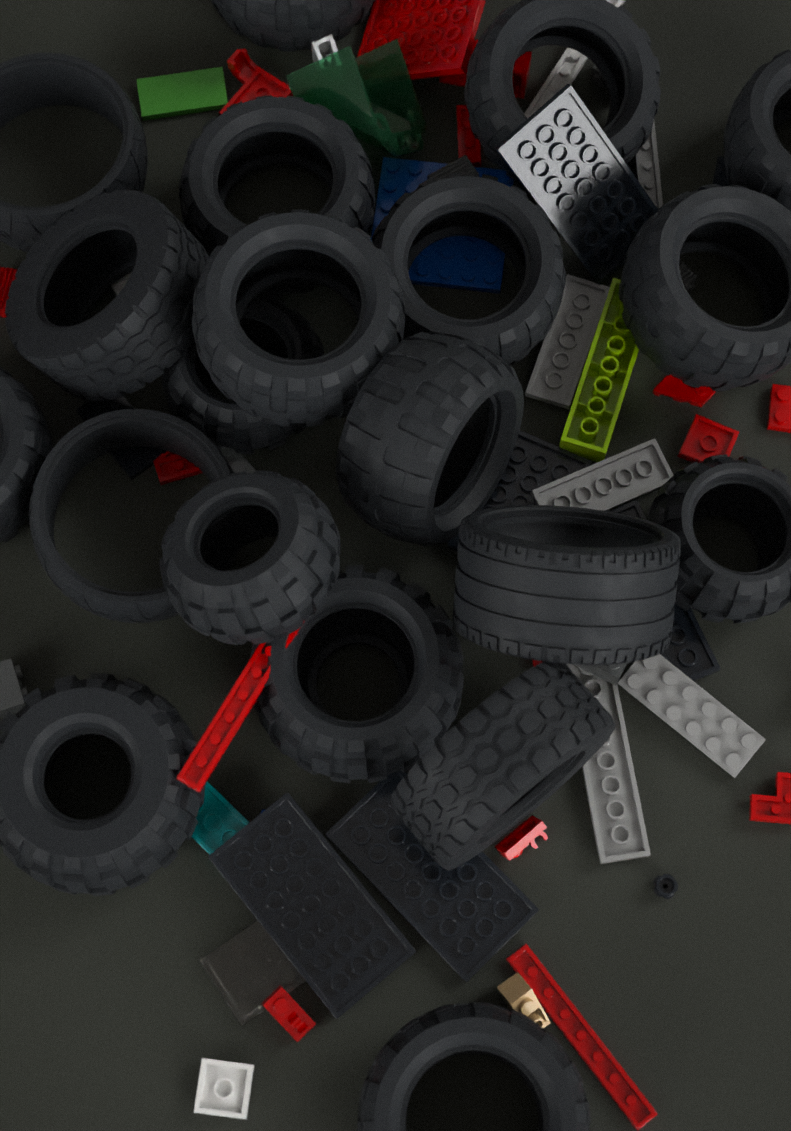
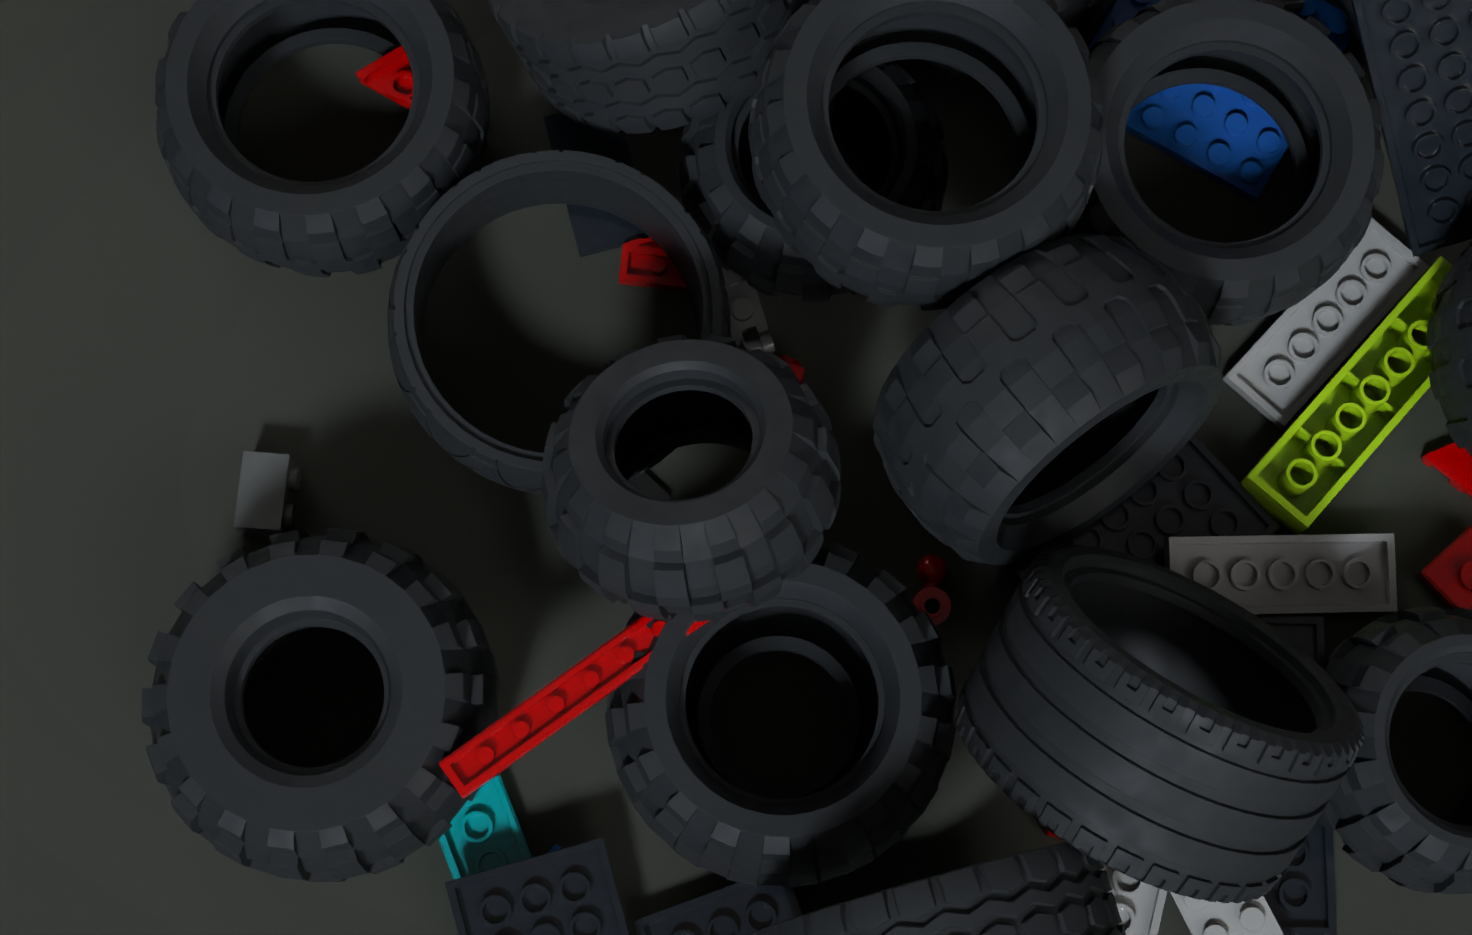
camera: 20 degrees right, 5 degrees up
(409, 568) = (931, 571): none -> red plate

